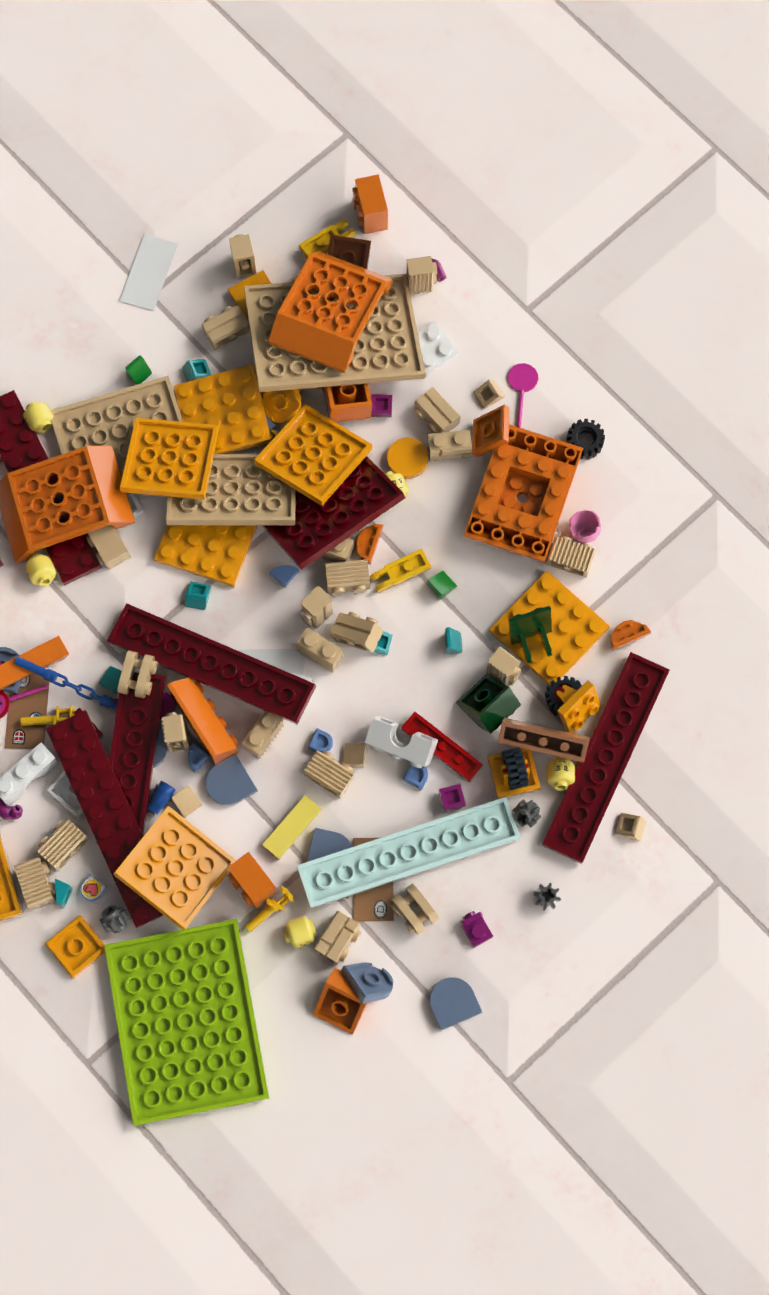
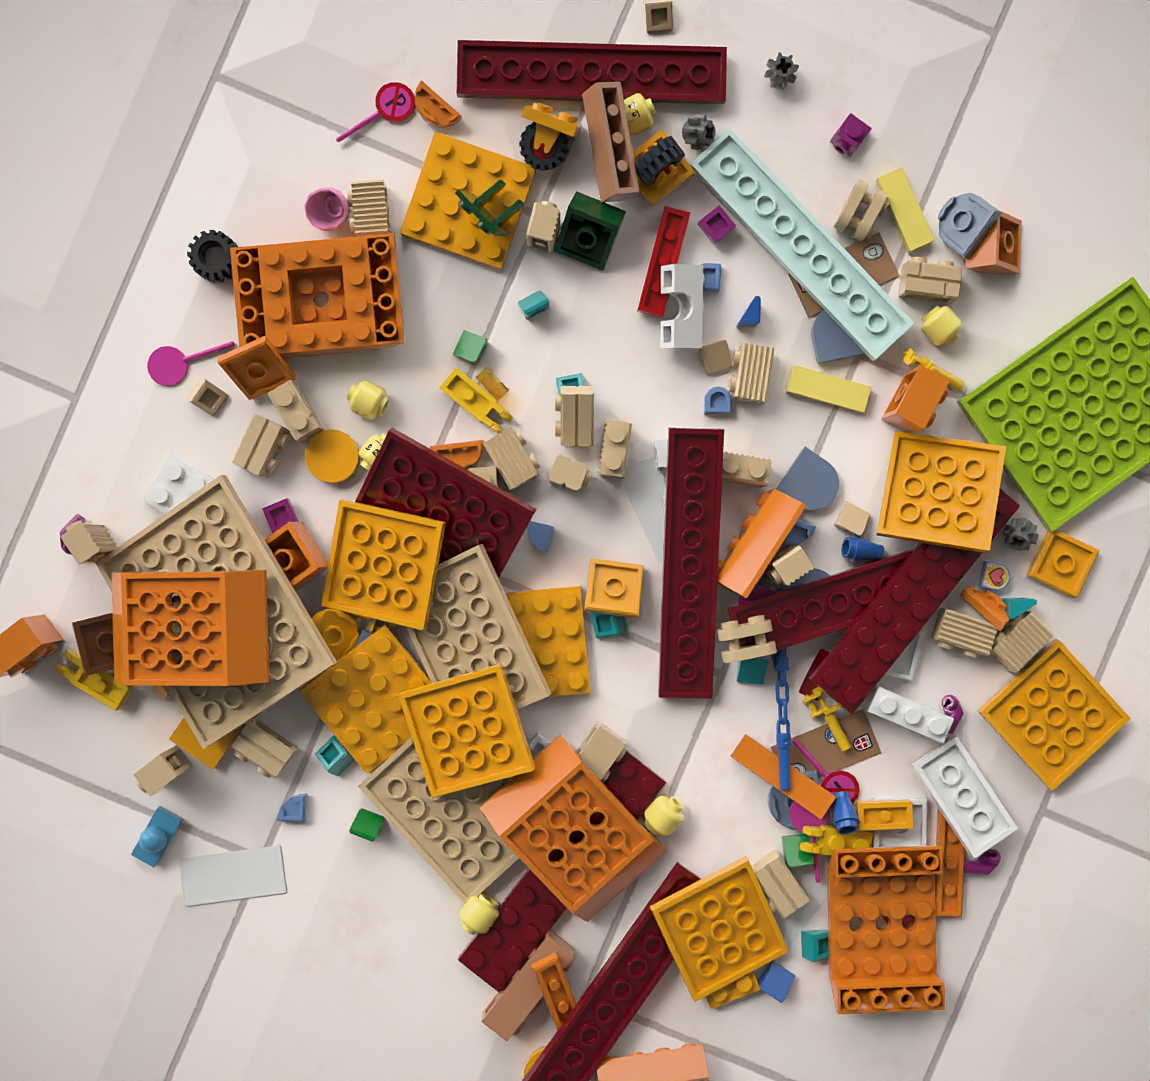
camera: 115 degrees left, 15 degrees up
(73, 871) = (987, 605): none -> orange plate
(173, 329) = (294, 809): none -> medium blue tile
(200, 235) = (157, 836): none -> dark azure tile
(220, 606) = (614, 588): none -> light orange tile
(373, 792) = (751, 316): none -> blue slope
(401, 946) = (905, 210): none -> light yellow tile
(408, 587) = (492, 383): none -> clear yellow pin
(435, 497) = (368, 400): none -> light yellow head
(453, 1002) = (940, 126): sand blue tile -> none
(643, 607) = (393, 102): none -> piece

